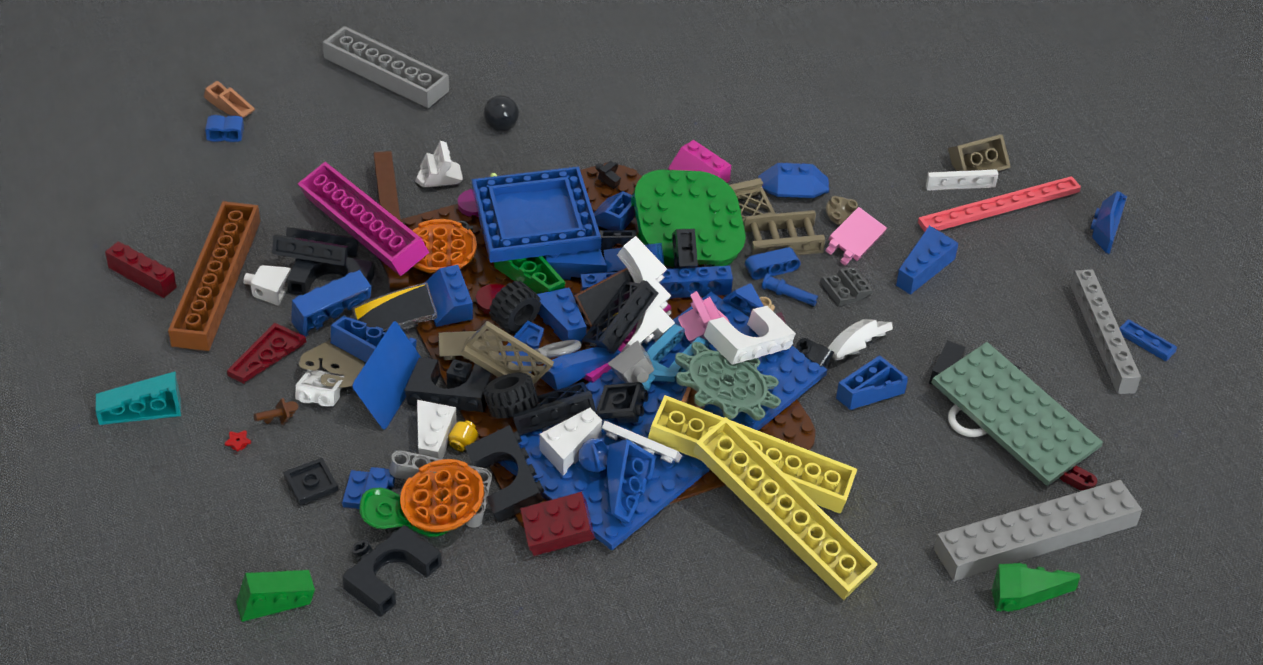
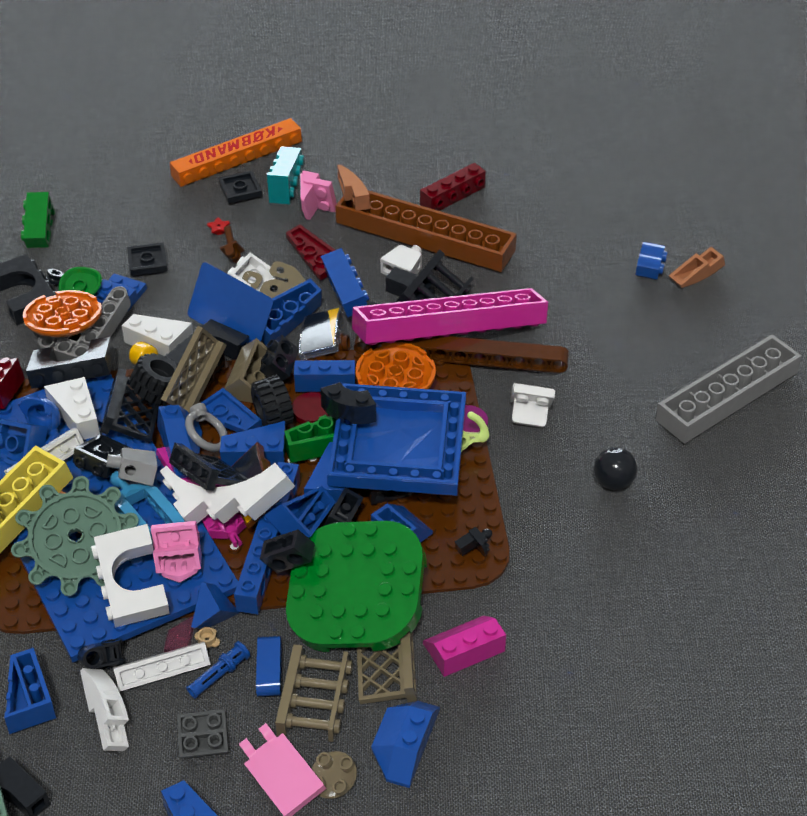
camera: 110 degrees right, 0 degrees up
(102, 458) = (235, 152): none -> orange brick
(165, 439) = (240, 187): none -> black plate
(183, 319) = (353, 188): none -> nougat slope
(188, 366) = (315, 194): none -> bright pink piece
(451, 322) = (279, 358): none -> black brick
(525, 232) = (348, 404): none -> black brick
(797, 316) = (161, 666): none -> white plate

